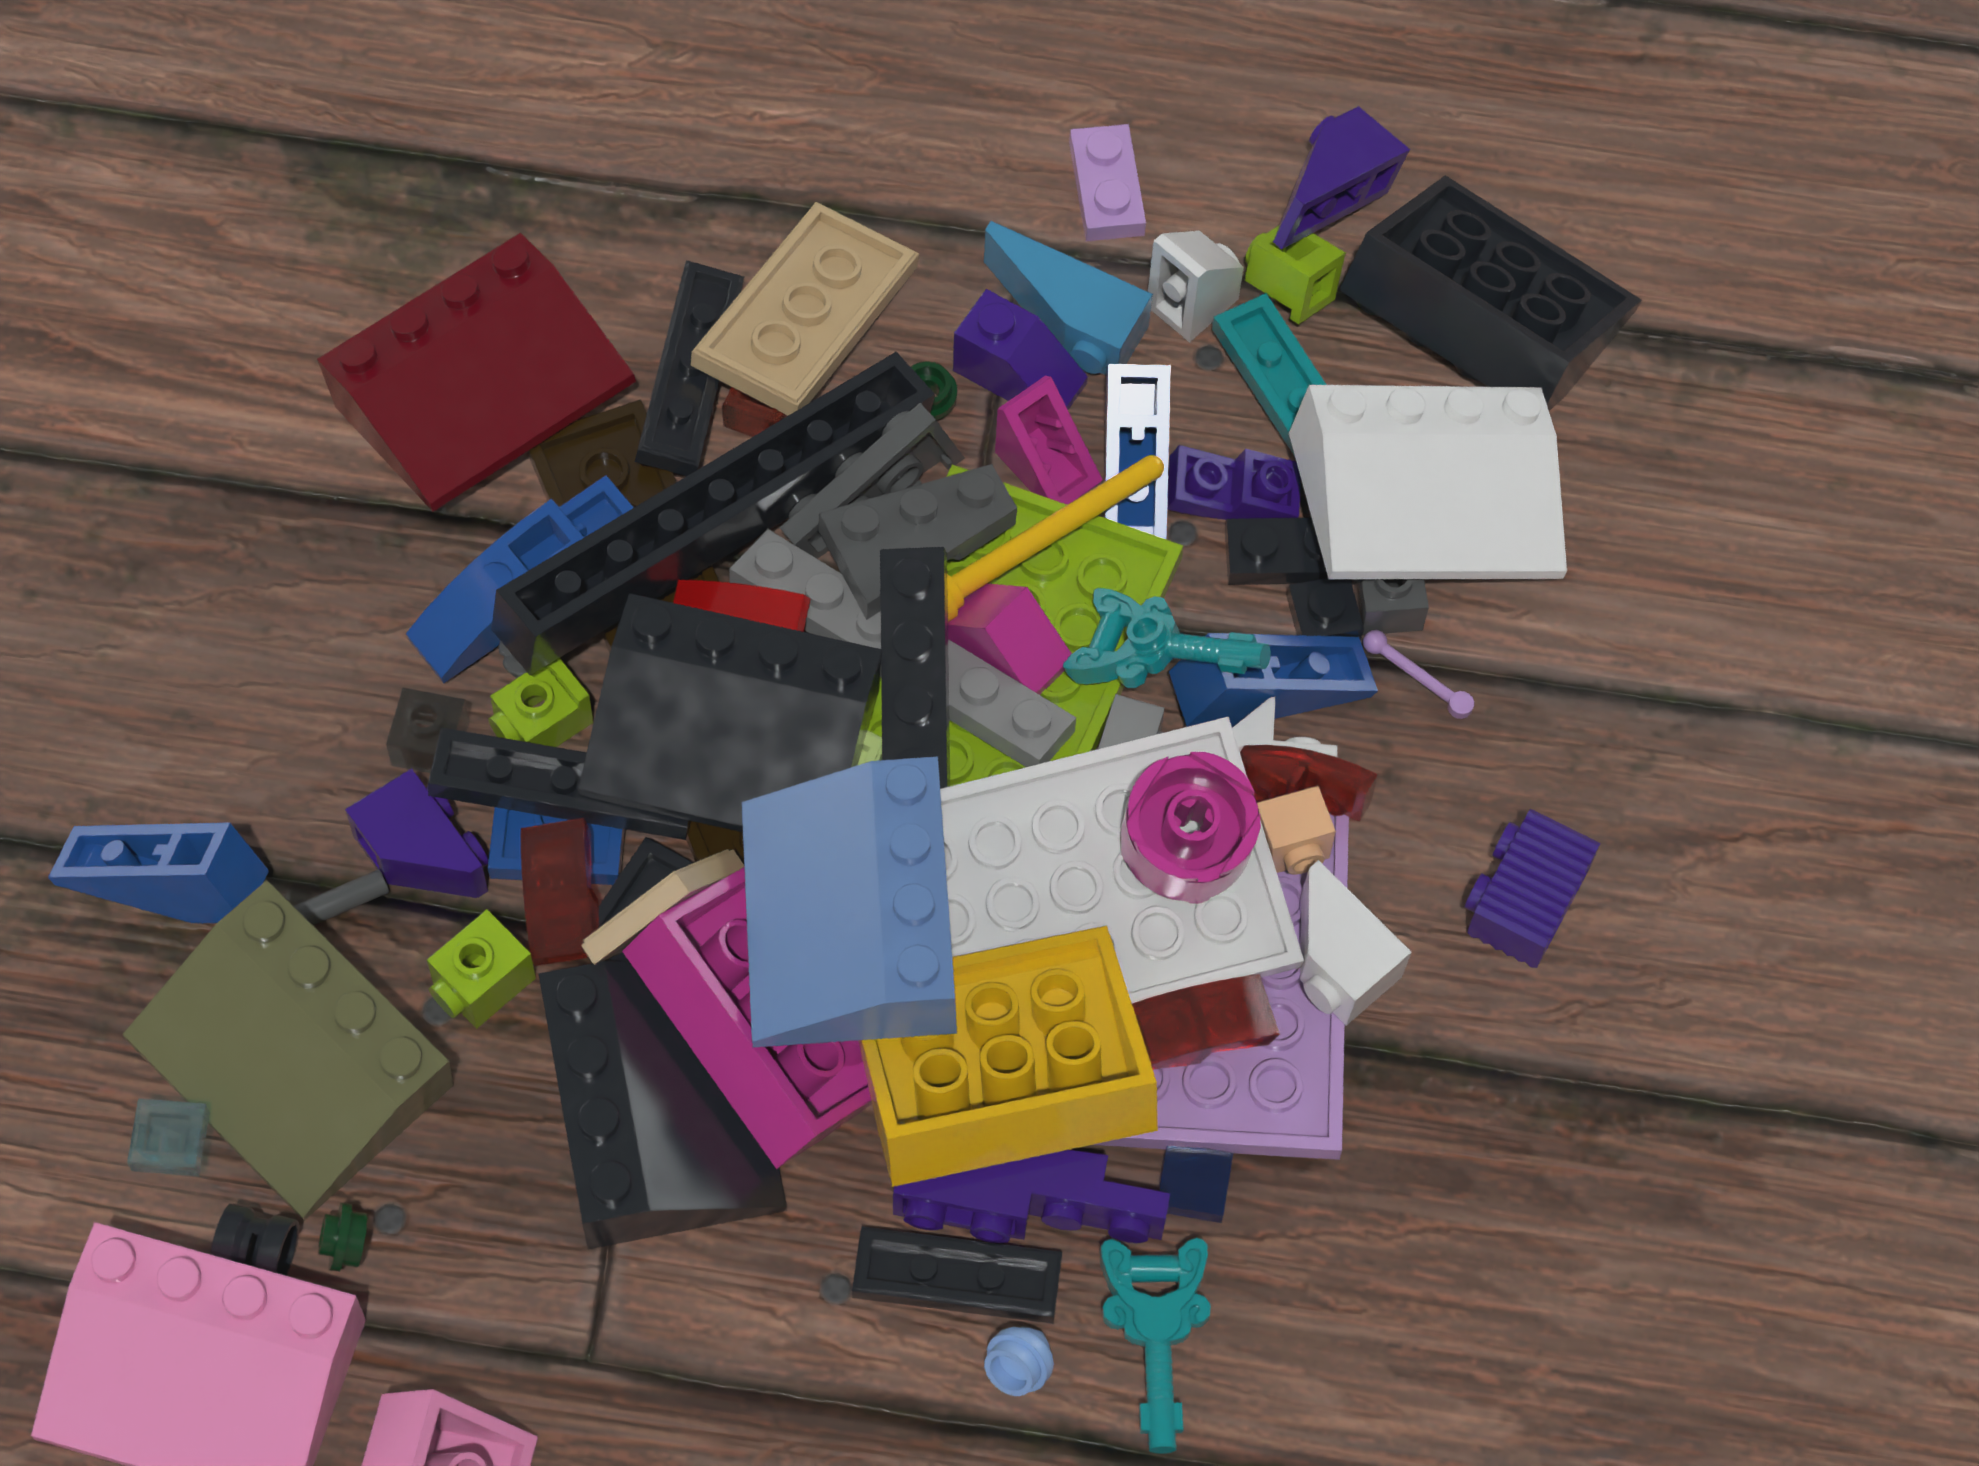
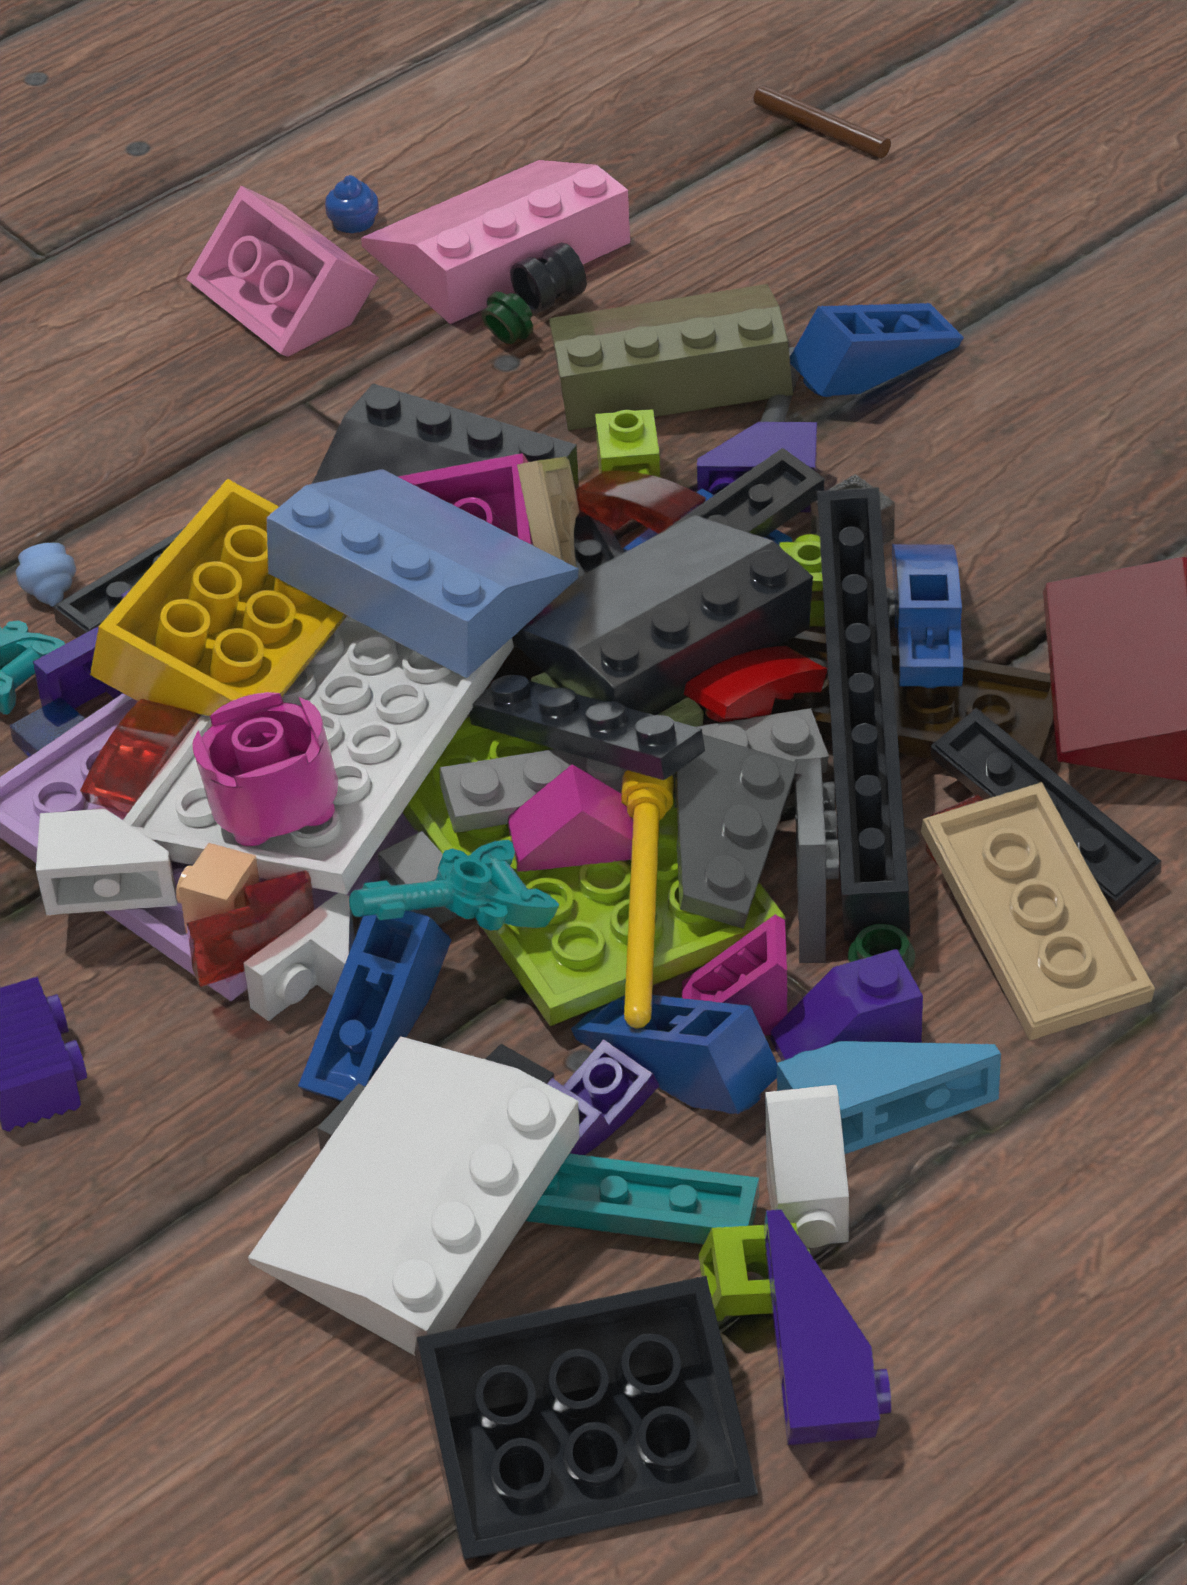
camera: 135 degrees right, 20 degrees down
(168, 1137) = (662, 266): clear light blue tile -> none
(1107, 182) = (994, 1218): lavender plate -> none
(1459, 703) = (230, 1136): lavender hinge -> none

